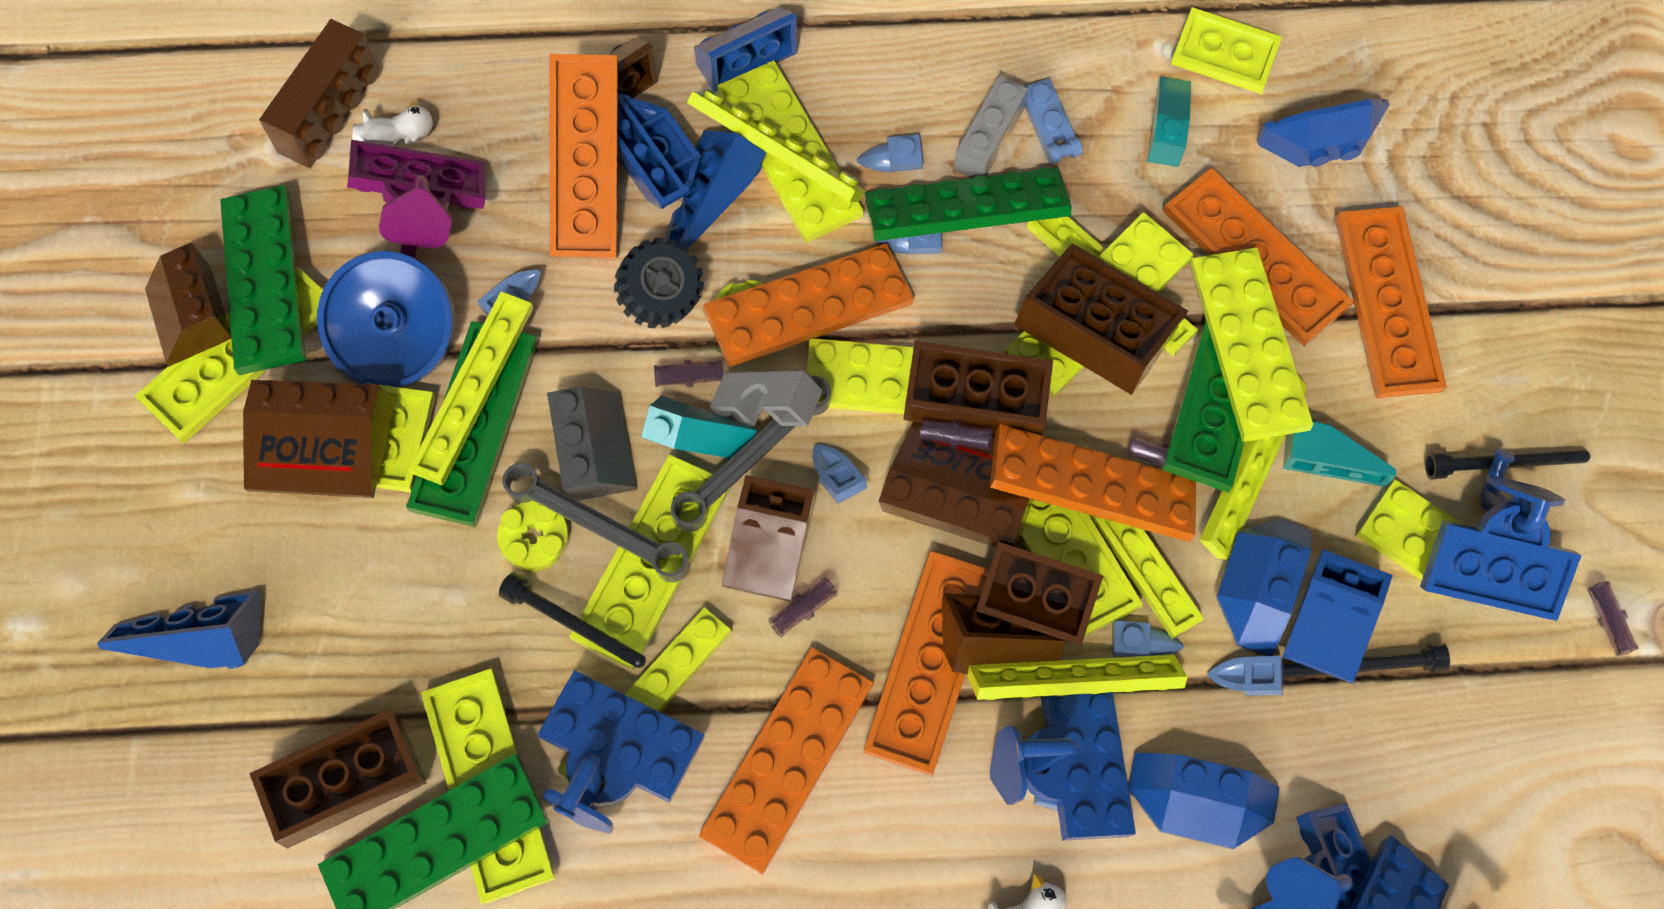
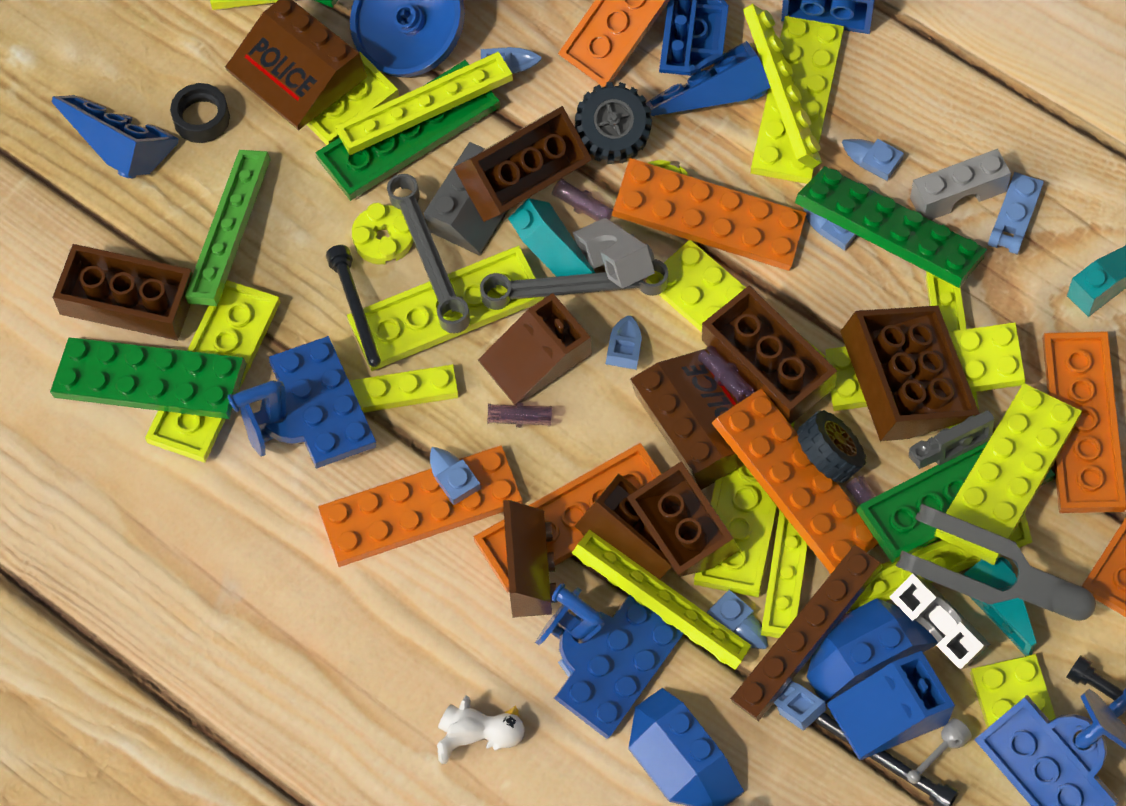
camera: 45 degrees right, 5 degrees down
(245, 529) = (193, 94): none -> black tyre
(386, 641) = (227, 228): none -> bright green plate
(616, 378) = (523, 163): none -> reddish brown brick
(796, 709) = (453, 475): none -> medium blue plate
(939, 736) = (528, 560): none -> reddish brown slope
(1094, 430) = (831, 446): none -> black wheel
(1187, 352) = (953, 441): none -> dark grey hinge
(1216, 608) = (806, 632): none -> reddish brown plate
(1307, 509) = (934, 612): none -> arch
(1365, 422) = (1031, 584): none -> dark grey piece
(1399, 600) = (955, 735): none -> light grey hinge

